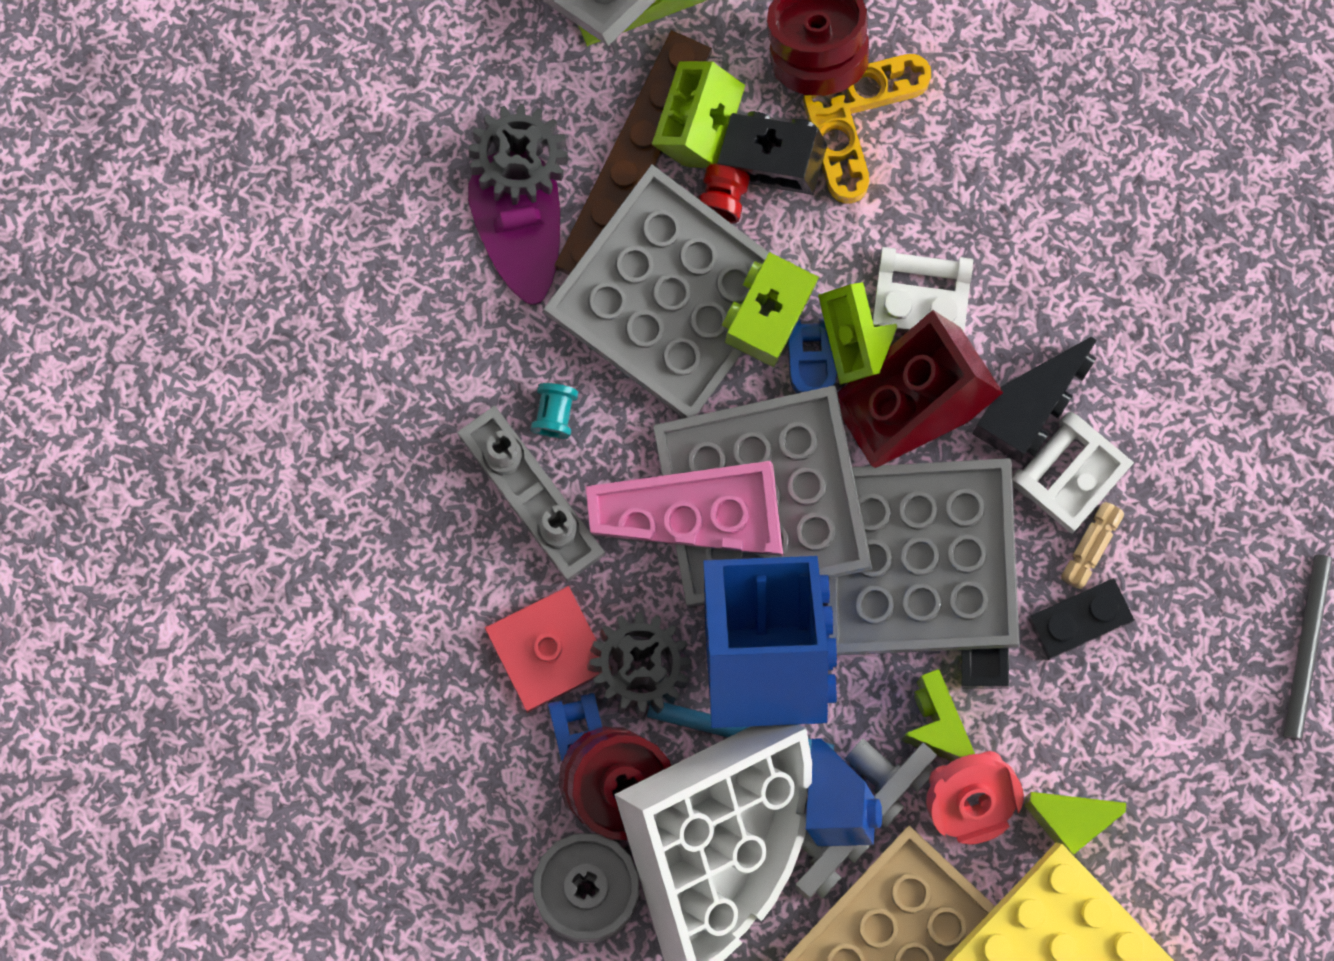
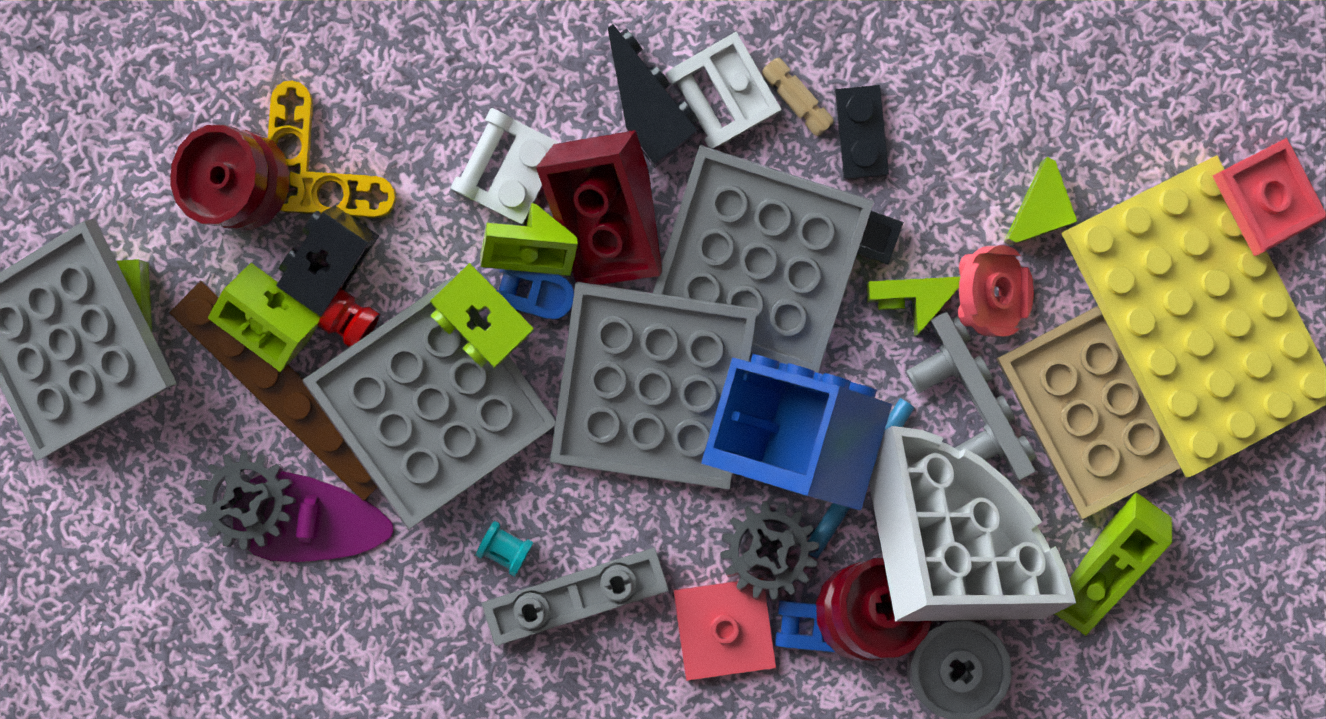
camera: 65 degrees left, 10 degrees up
(703, 508) = (649, 443): bright pink wing -> none
(839, 802) = (961, 416): blue slope -> none

